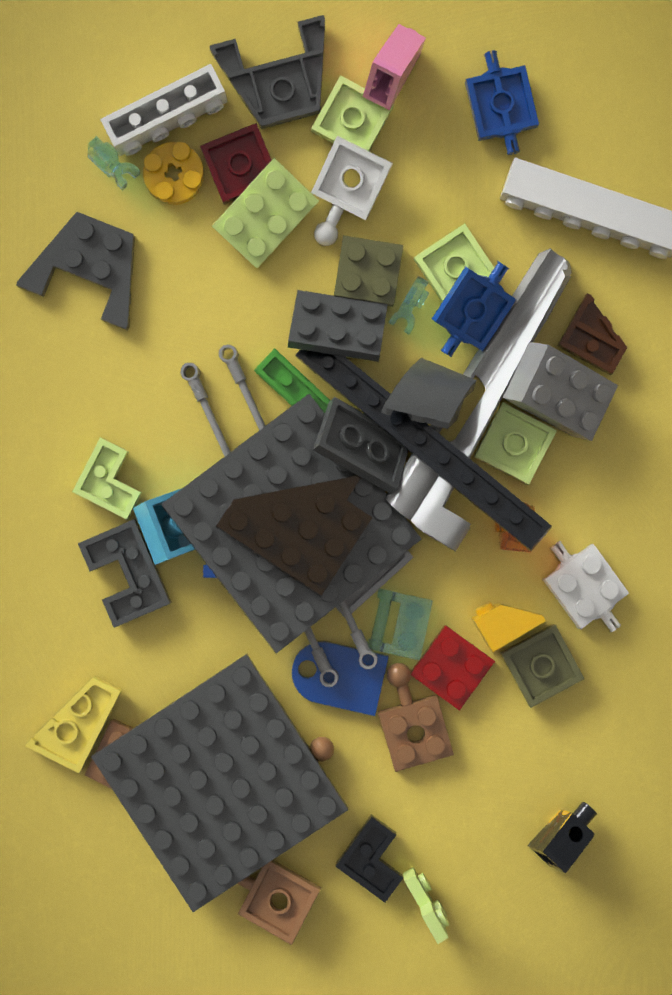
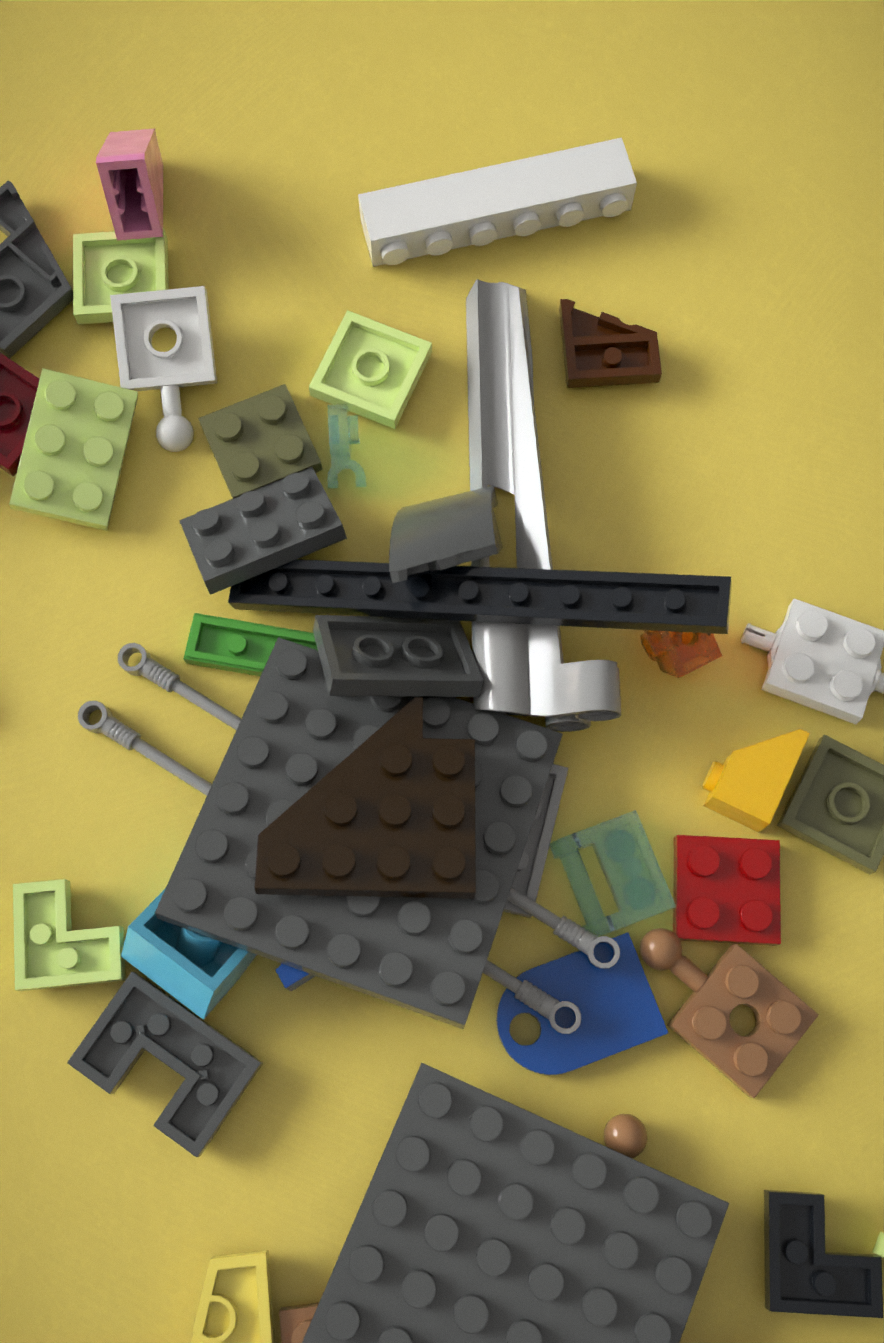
camera: 30 degrees left, 15 degrees down
(474, 308) = (429, 399): blue plate -> none
(501, 103) = (300, 155): blue plate -> none
(515, 443) = (600, 529): yellowish green plate -> none
(560, 391) = (611, 425): light grey brick -> none

